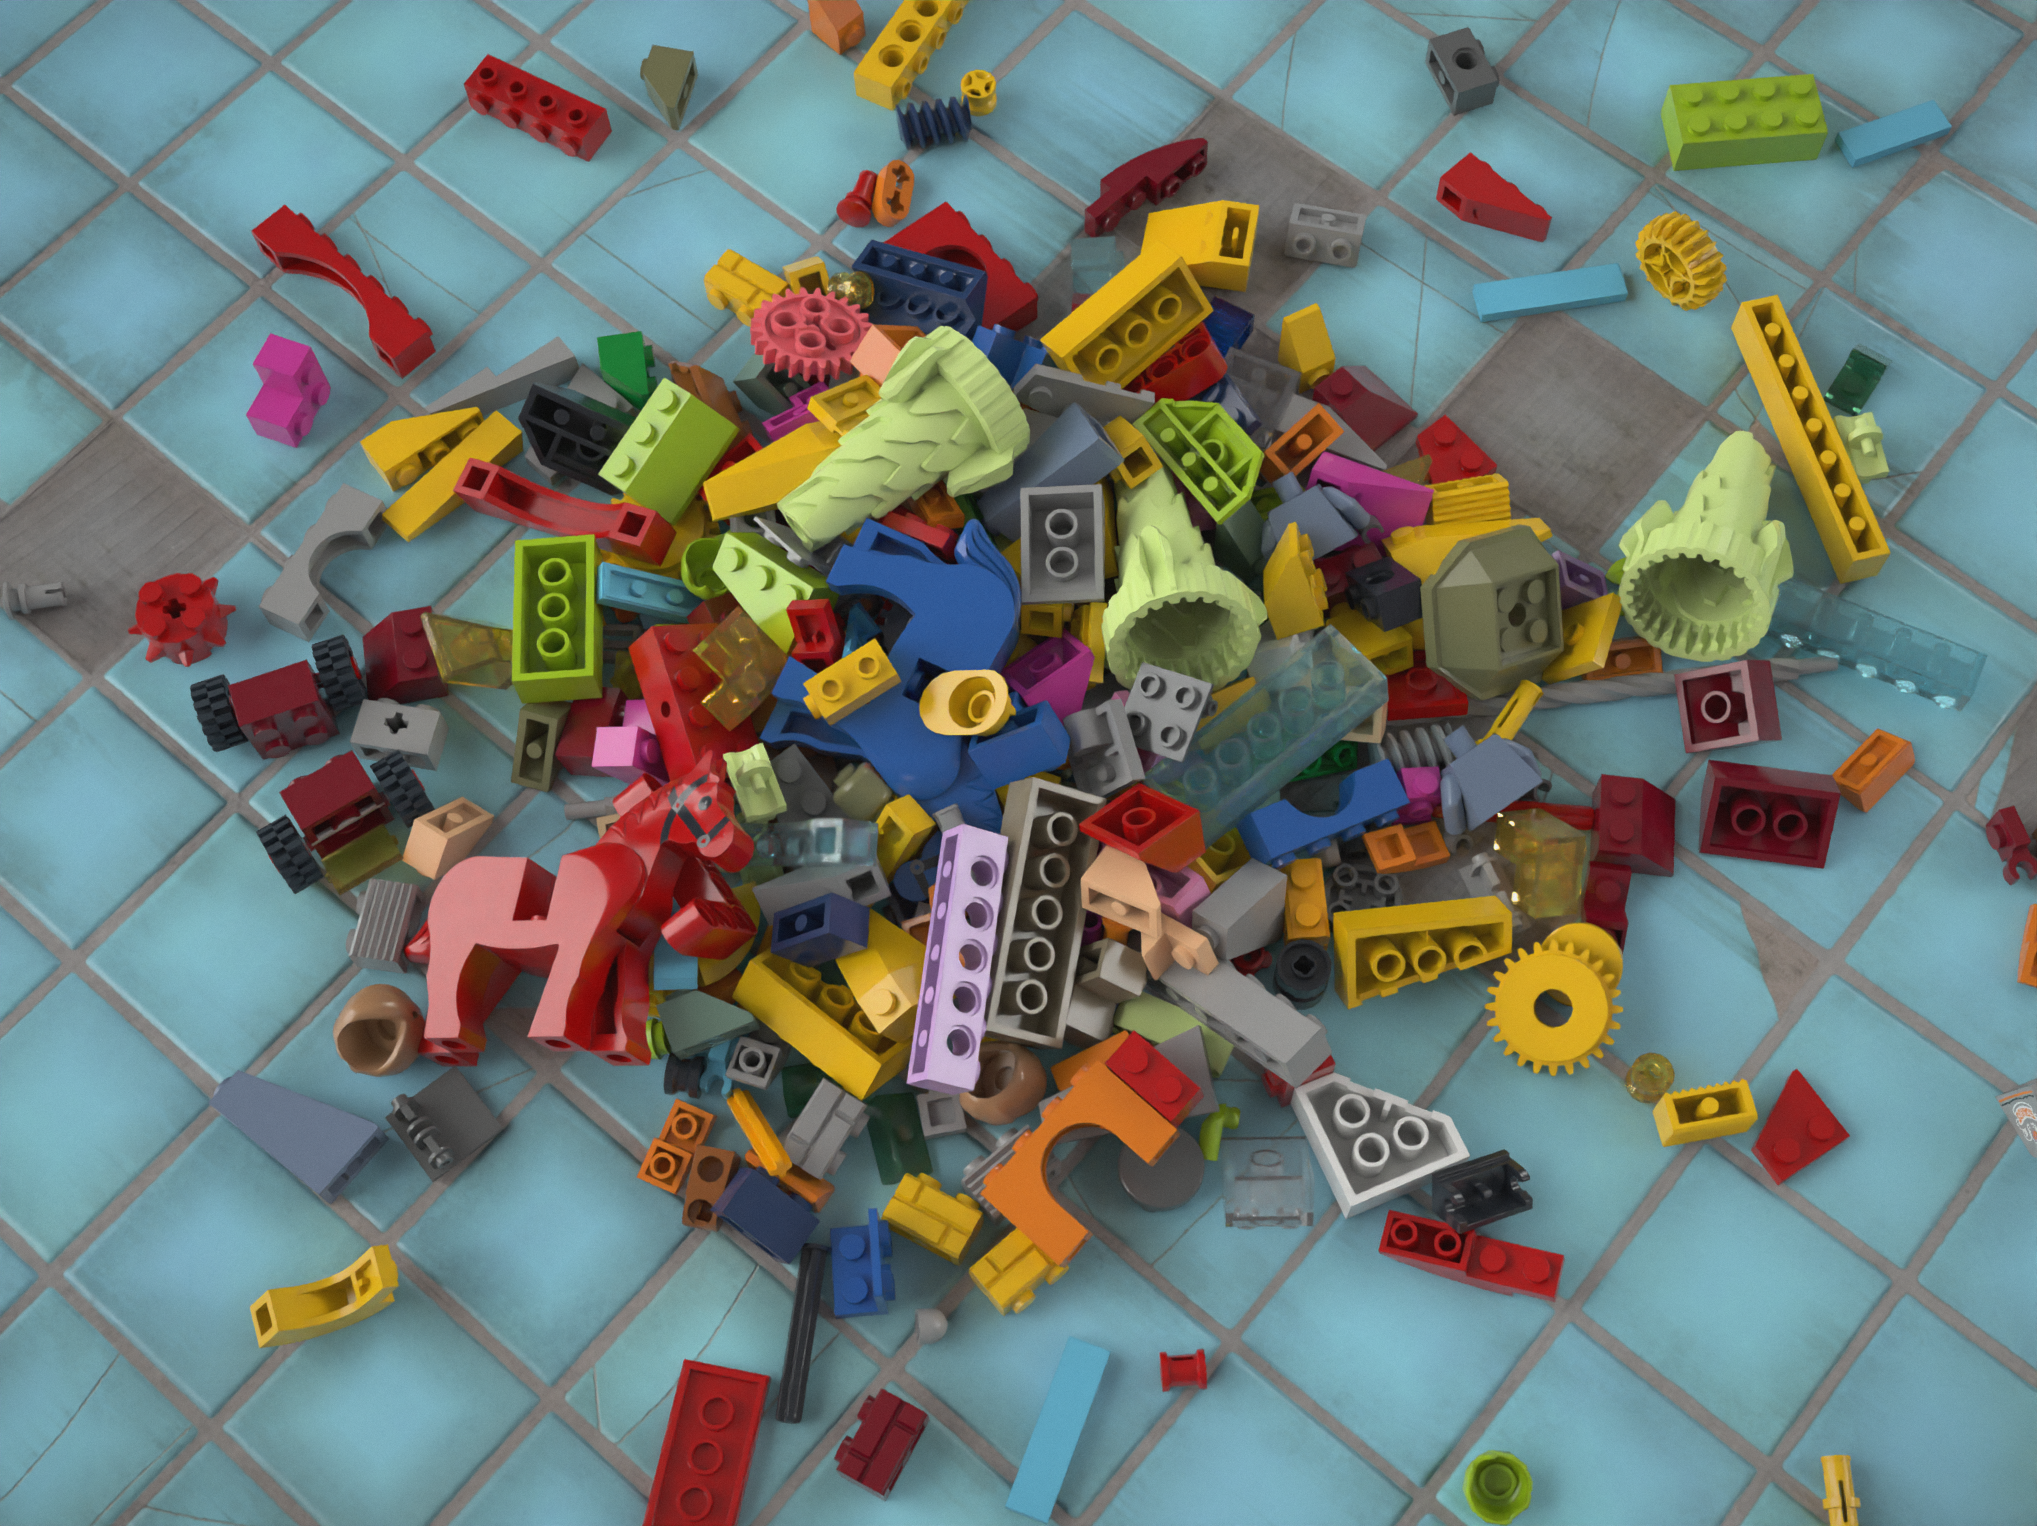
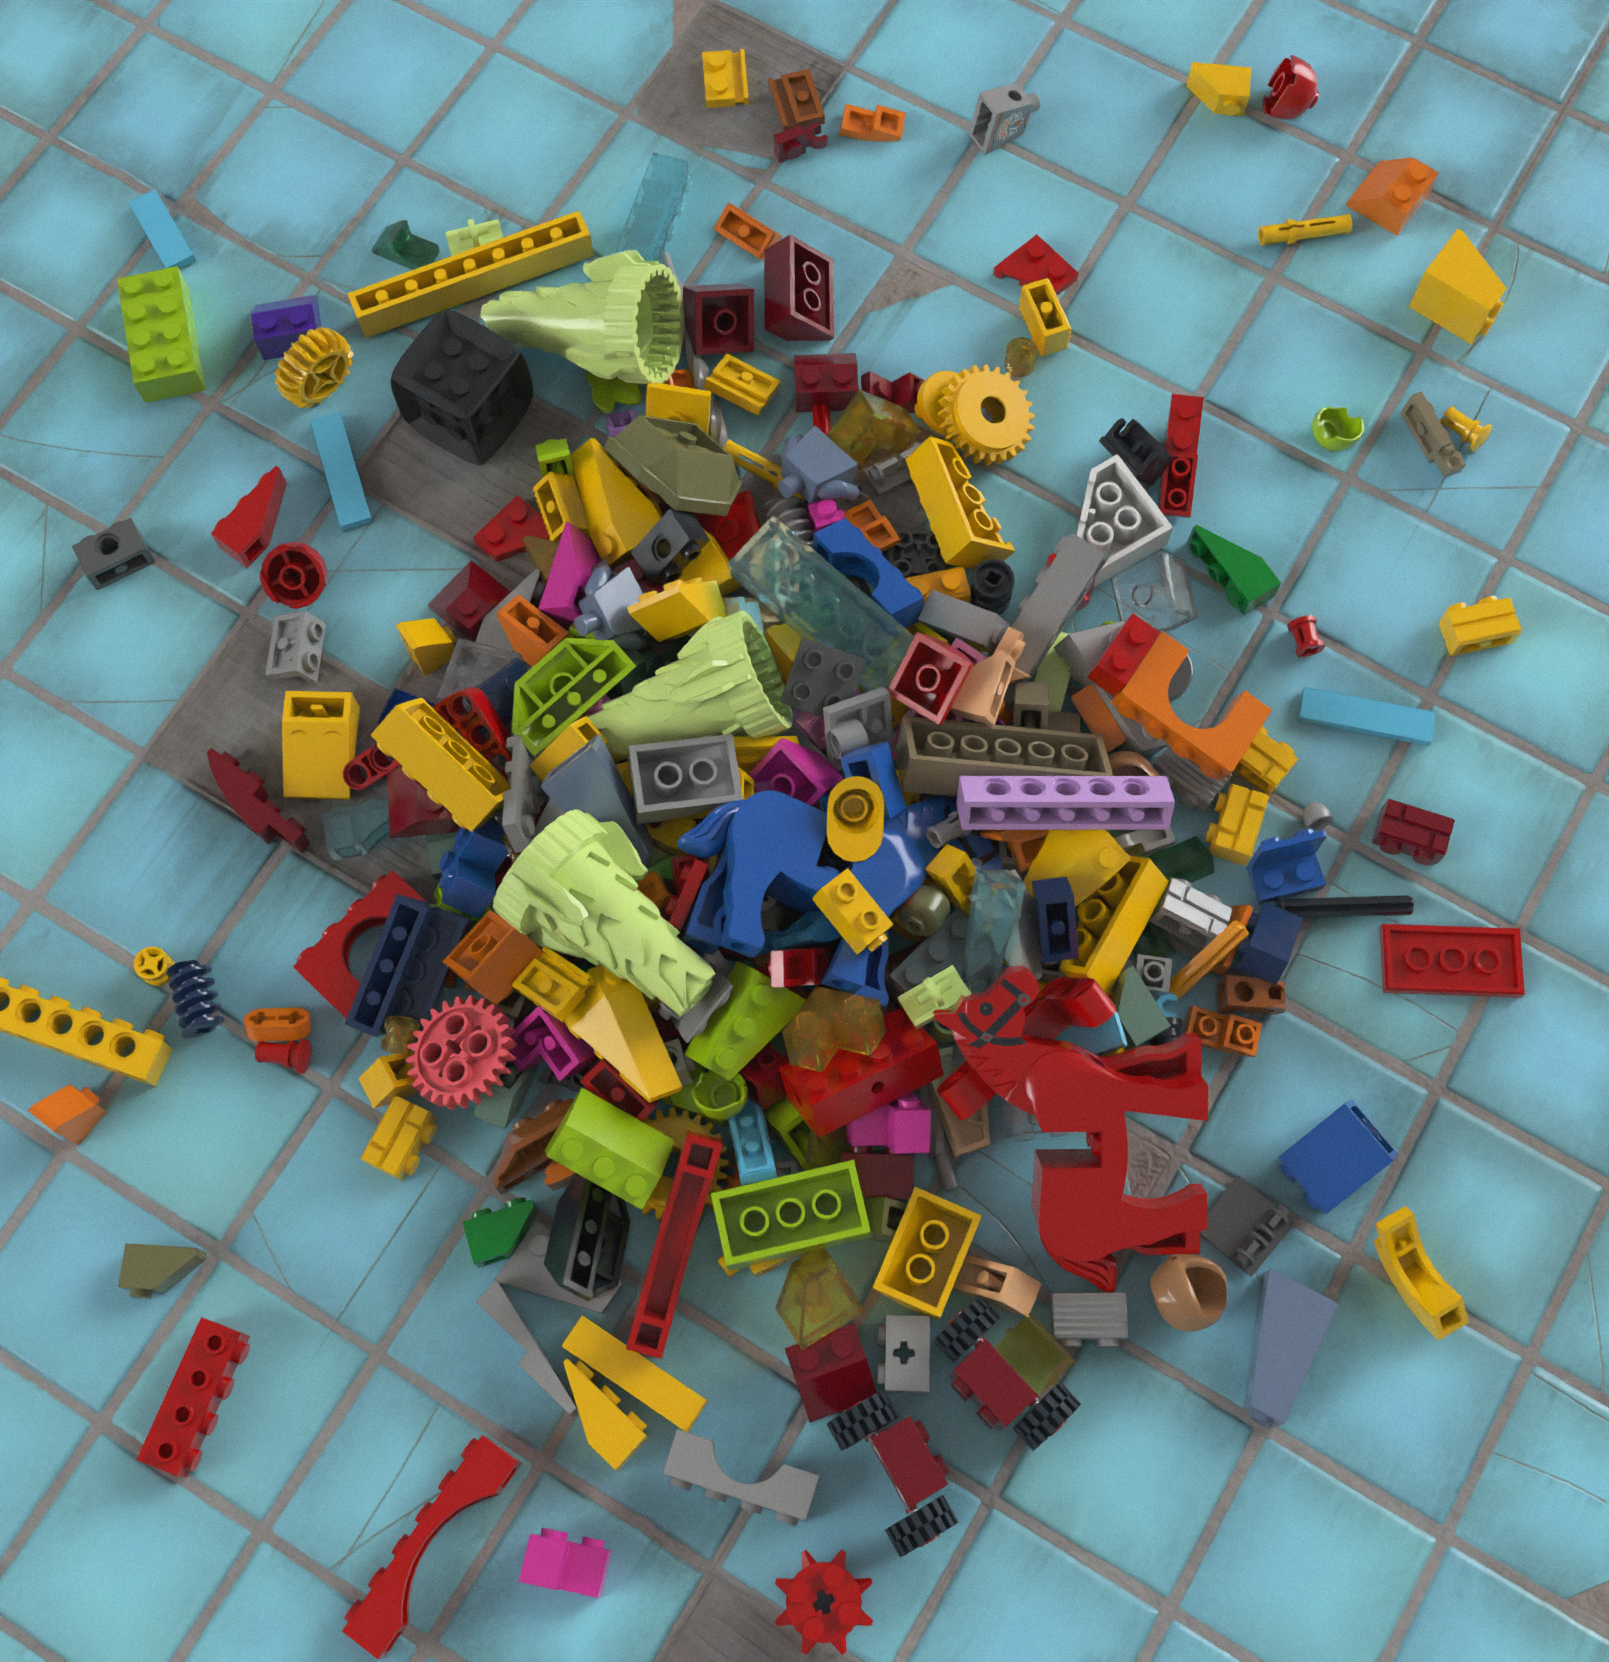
camera: 100 degrees left, 5 degrees up
(492, 1247) = (1337, 1157): none -> blue slope
(493, 764) = (926, 1253): none -> yellow slope
(1281, 1304) = (1238, 571): none -> green slope
(1410, 229) = (293, 574): none -> red cylinder
(1535, 496) = (555, 457): none -> lime slope
(1629, 725) = (742, 384): none -> yellow plate
(1632, 400) = (462, 386): none -> black piece
(1752, 246) = (282, 322): none -> dark purple slope

